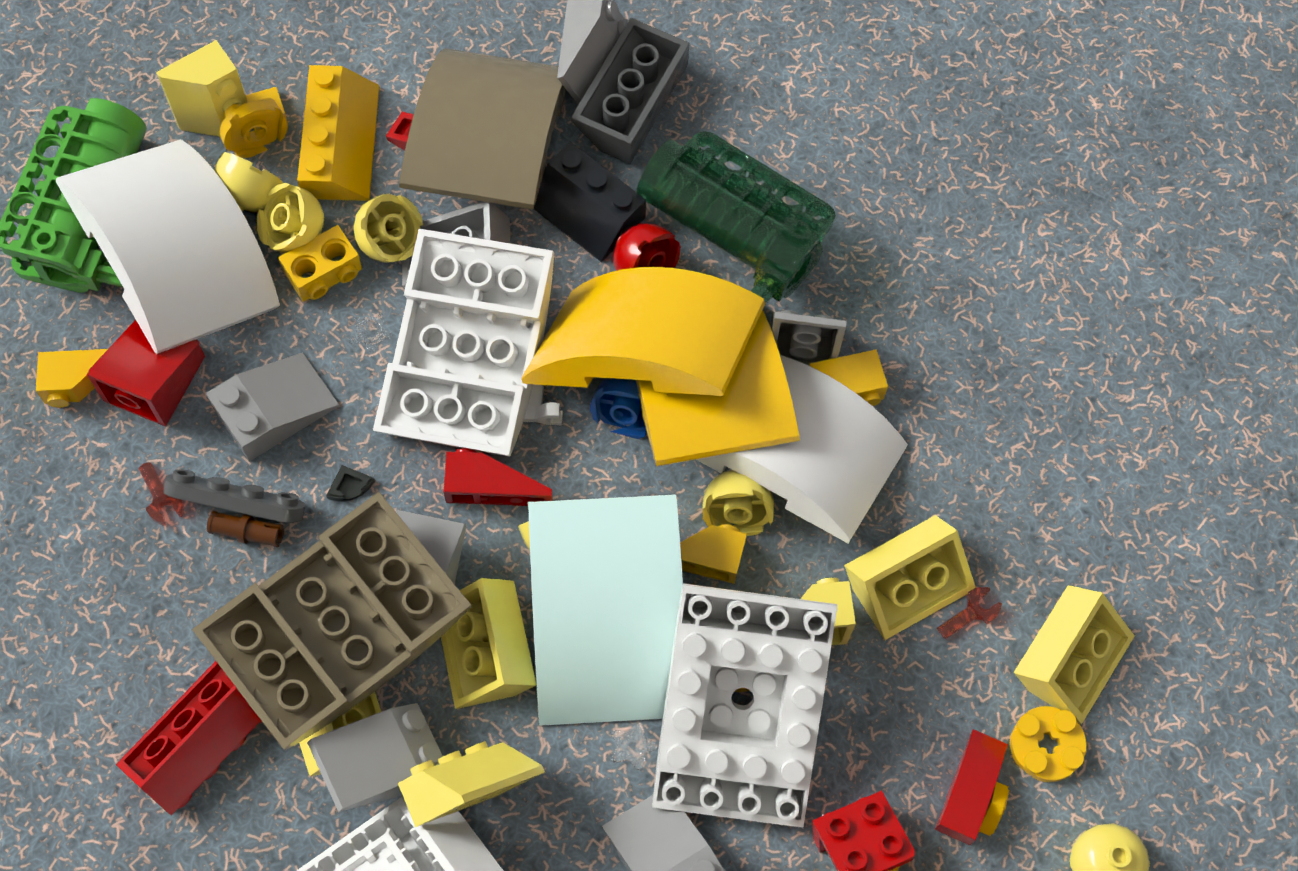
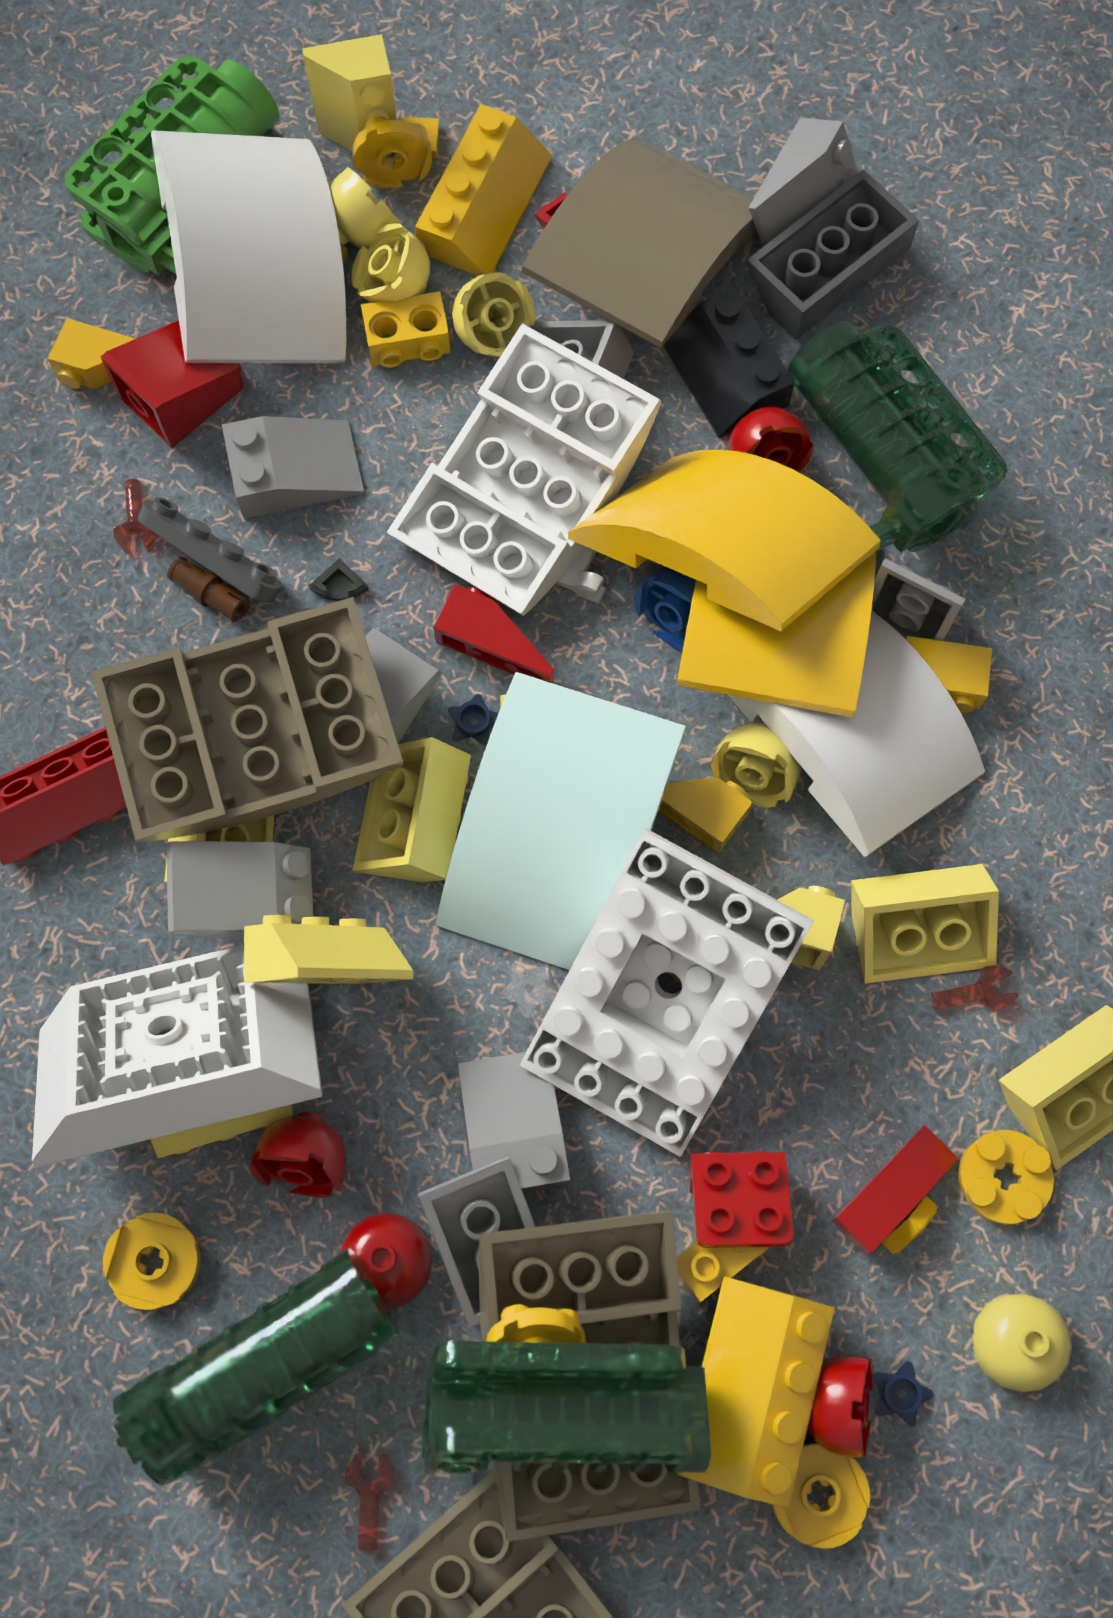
camera: 25 degrees right, 5 degrees up
(498, 544) = (468, 710): none -> dark blue plate

